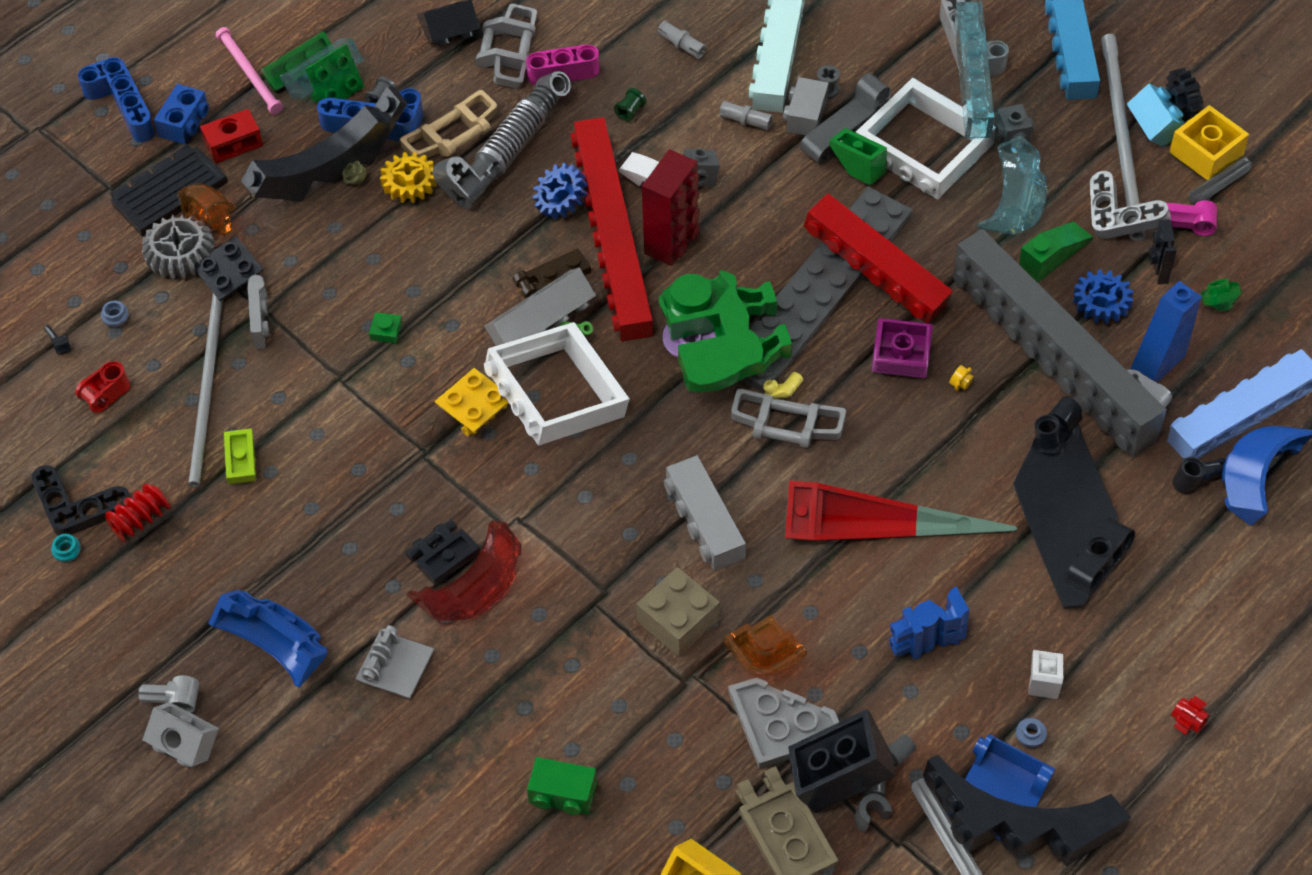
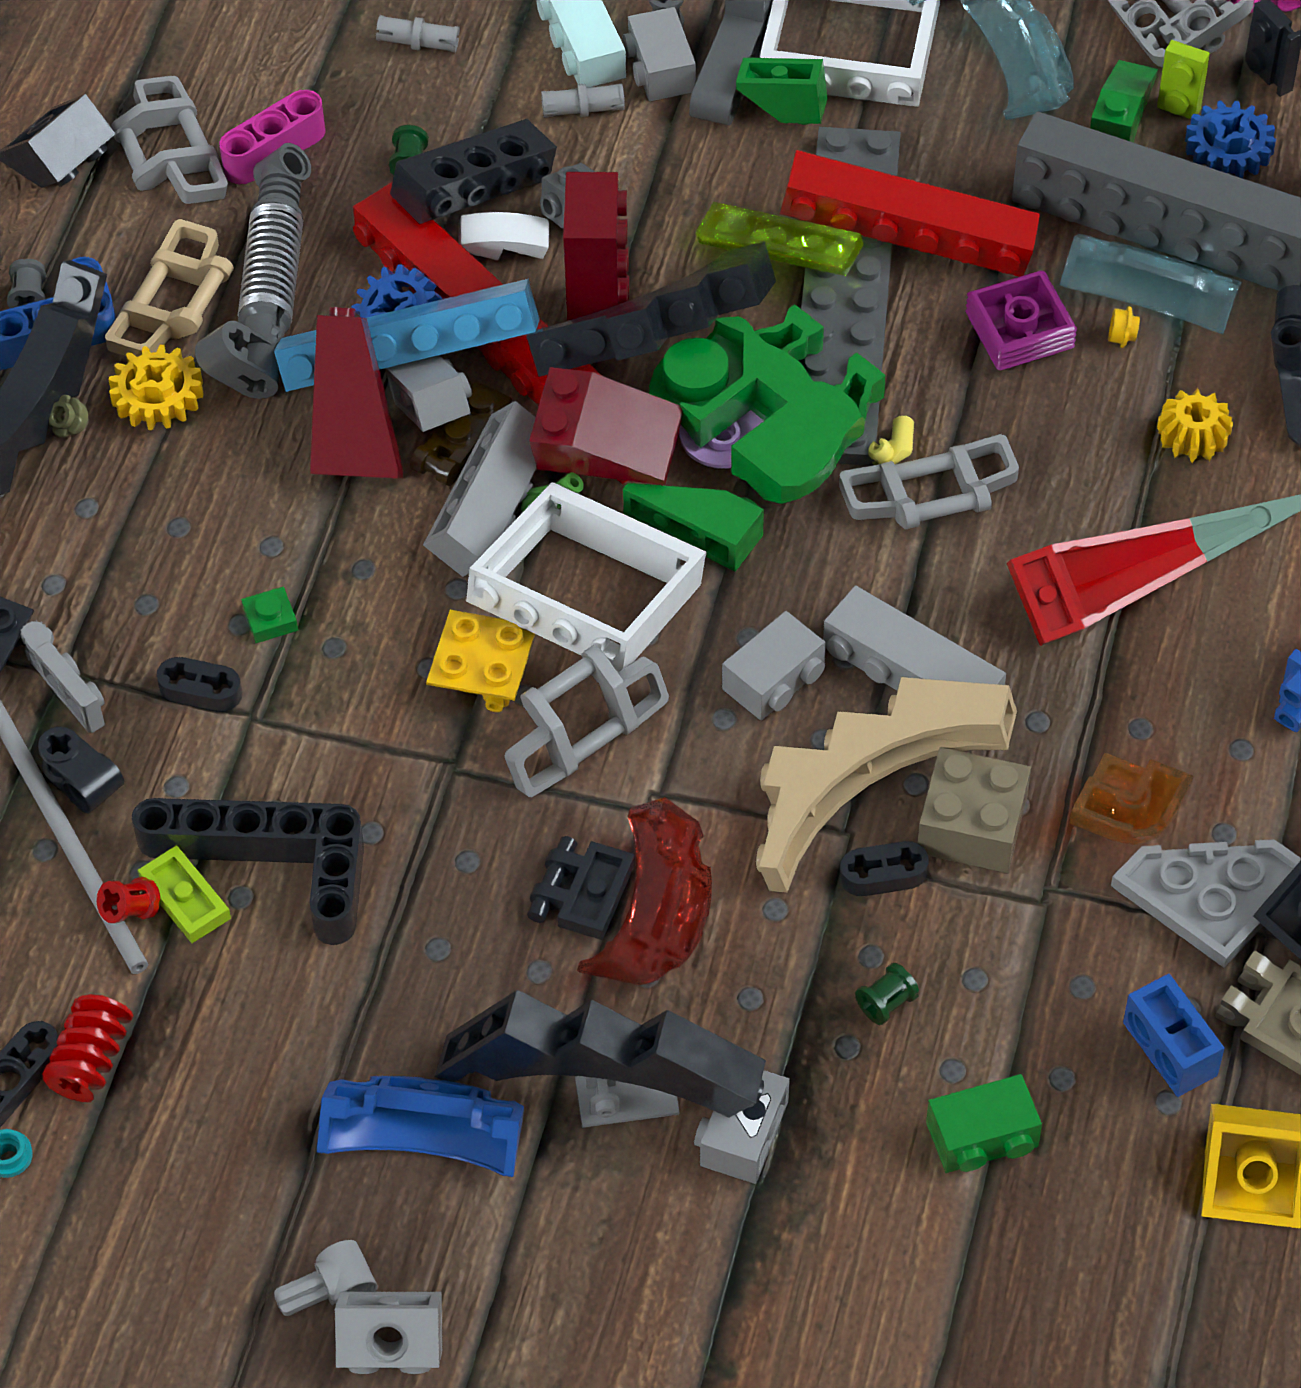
camera: 30 degrees left, 0 degrees up
(207, 445) = (128, 900): none -> red bush
(230, 363) = (78, 769): none -> black piece
(306, 440) = (268, 843): none -> black beam
(320, 352) = (199, 684): none -> black beam
(369, 633) = (664, 1054): none -> black arch
(436, 719) = (742, 1142): none -> light grey brick
(493, 229) = (349, 402): none -> dark red slope
(506, 475) = (552, 732): none -> light grey bar
(544, 241) = (429, 391): none -> light grey brick
(550, 206) = (425, 330): none -> dark azure brick
(561, 689) = (887, 993): none -> dark green bush
(609, 621) = (884, 868): none -> black beam
(616, 304) = (603, 428): none -> slope
(627, 479) = (774, 666): none -> light grey brick
(635, 548) = (863, 748): none -> tan arch
(645, 380) = (701, 517): none -> green slope
(651, 129) = (472, 170): none -> black brick
(696, 790) = (1173, 1035): none -> blue brick
(700, 255) = (642, 325): none -> black arch
(796, 241) = (785, 238): none -> clear neon green plate
(960, 453) = (1194, 425): none -> yellow gear
(993, 355) = (1151, 281): none -> clear light blue windscreen
(1094, 248) = (1183, 79): none -> lime plate

